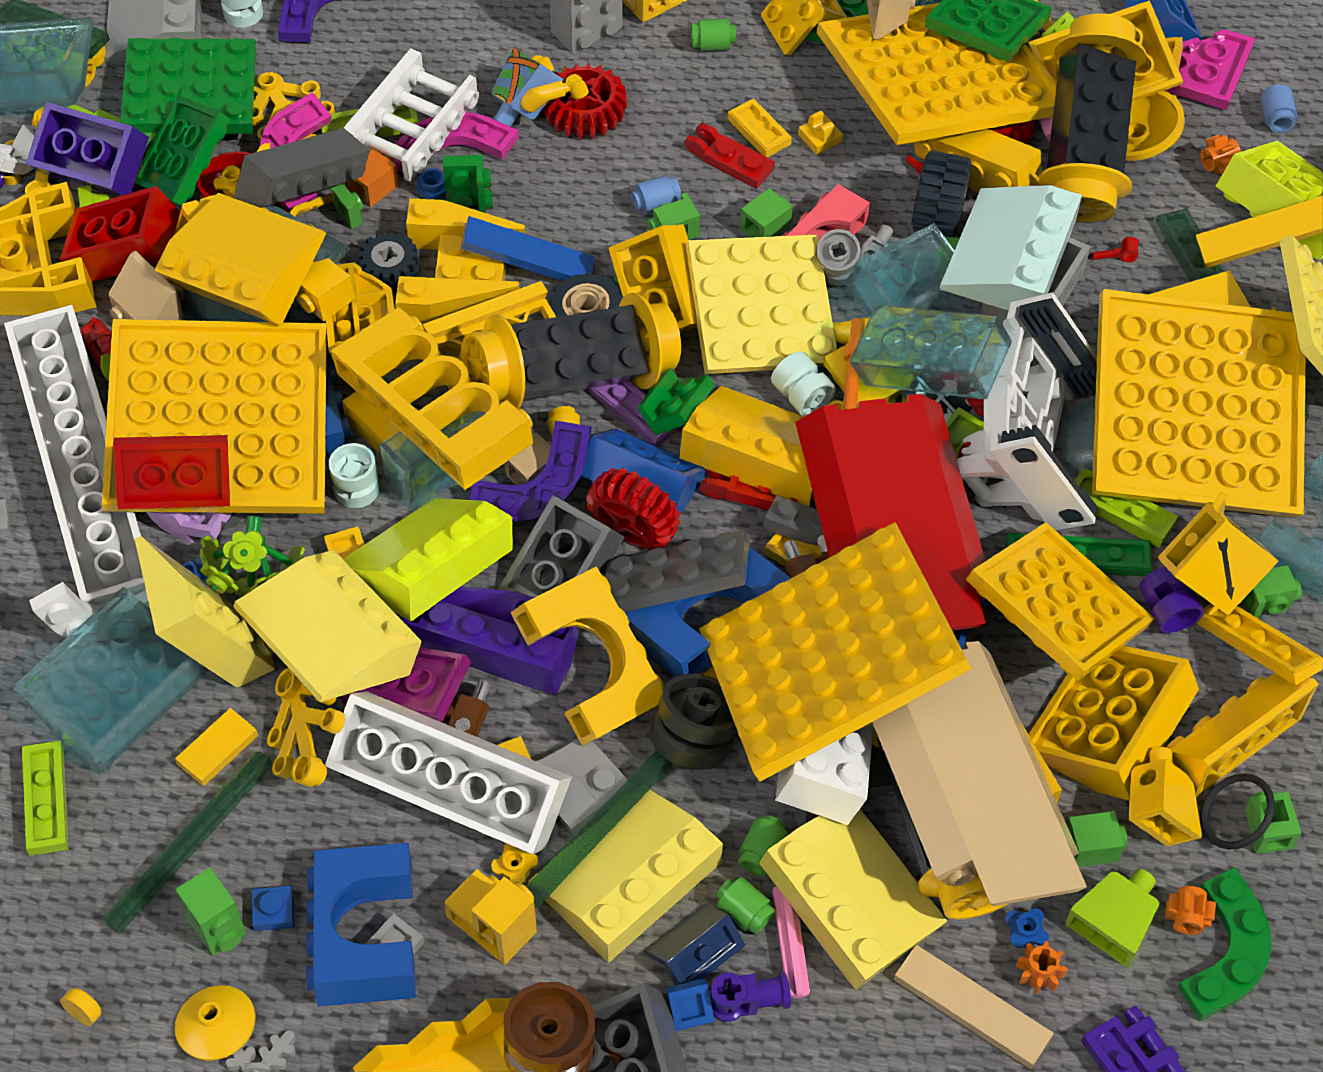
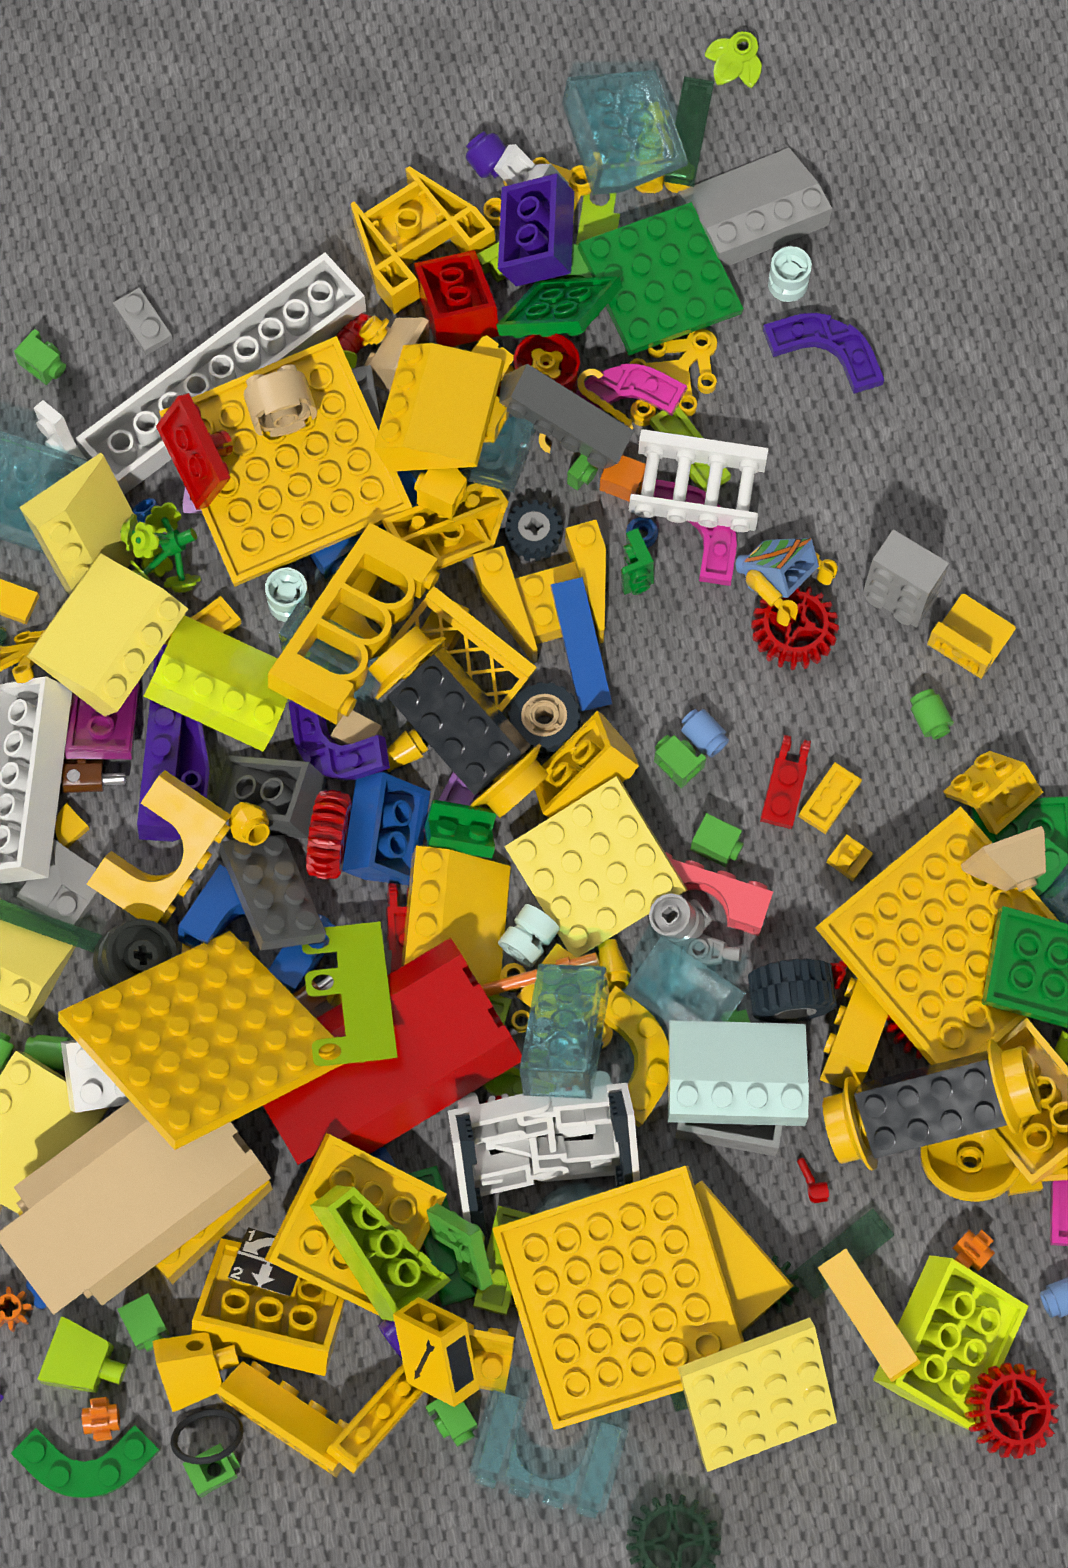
camera: 70 degrees right, 15 degrees up
(108, 311) = (374, 330): none -> yellow plate
(161, 376) = (279, 401): none -> tan brick
(603, 557) = (249, 823): none -> yellow rock
(811, 505) = (364, 994): none -> lime piece
(1063, 705) = (254, 1270): none -> black sticker
(1102, 579) = (376, 1252): none -> lime wedge
(1104, 510) = (467, 1243): none -> bright green plate

